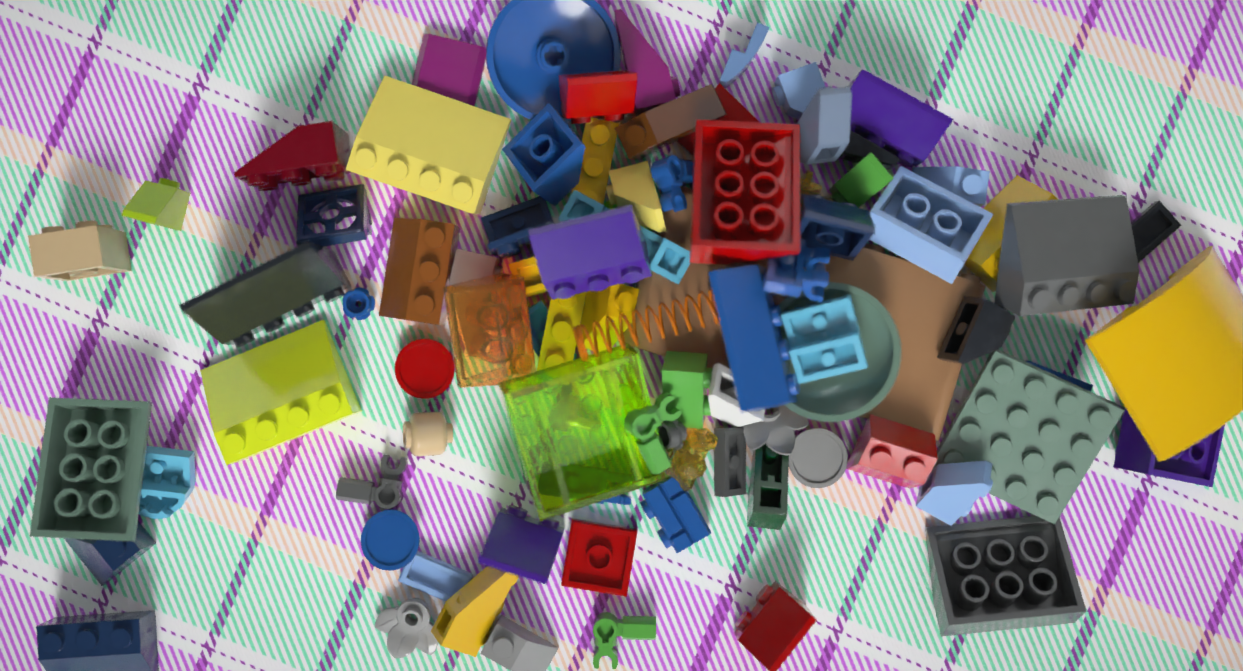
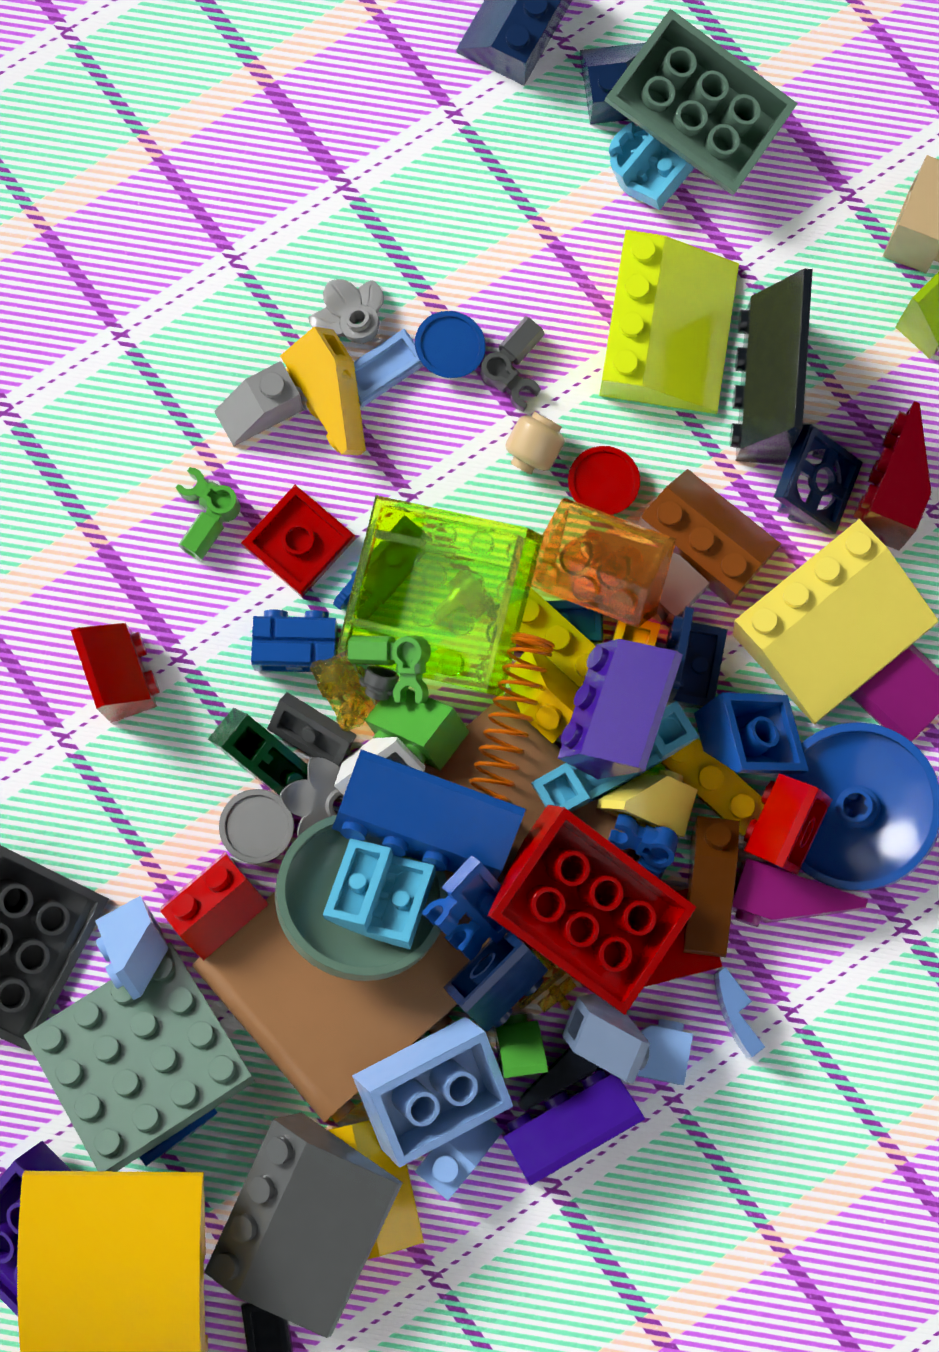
camera: 120 degrees right, 10 degrees down
(349, 303) = (715, 445): blue plate -> none
(522, 544) = (362, 463): dark purple slope -> none
(976, 330) = (284, 1071): black slope -> none

